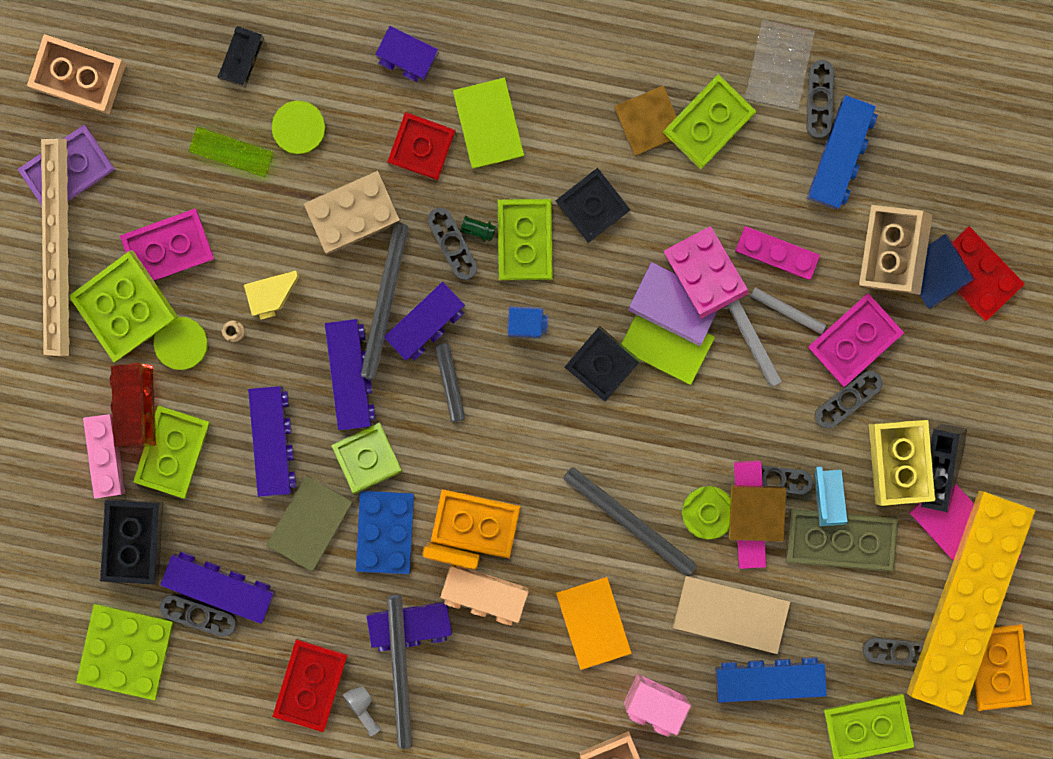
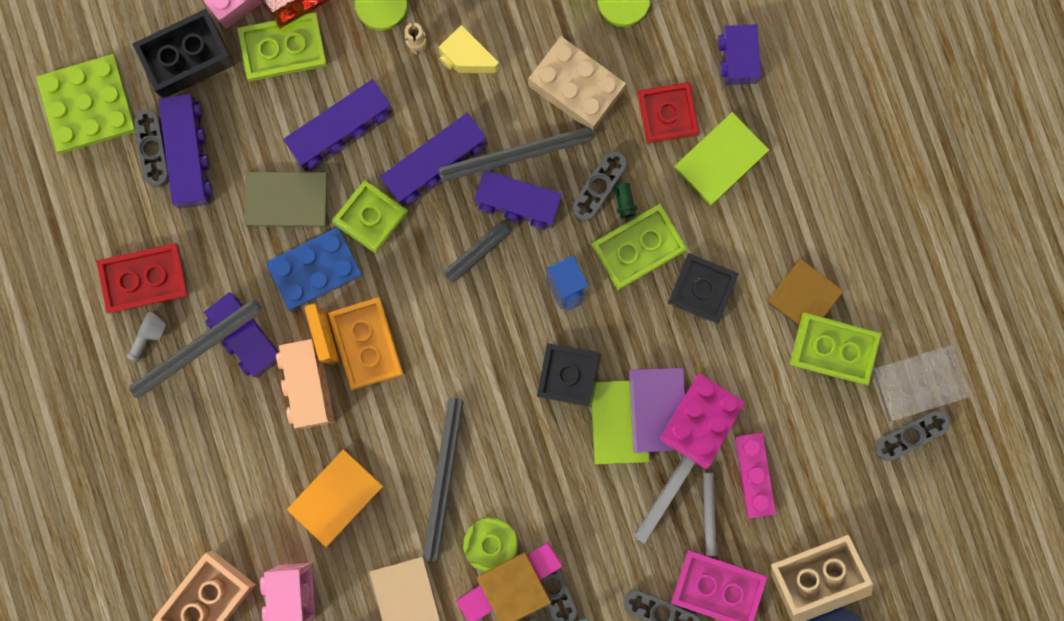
camera: 60 degrees right, 5 degrees down
(841, 153) = (877, 481): blue brick -> none

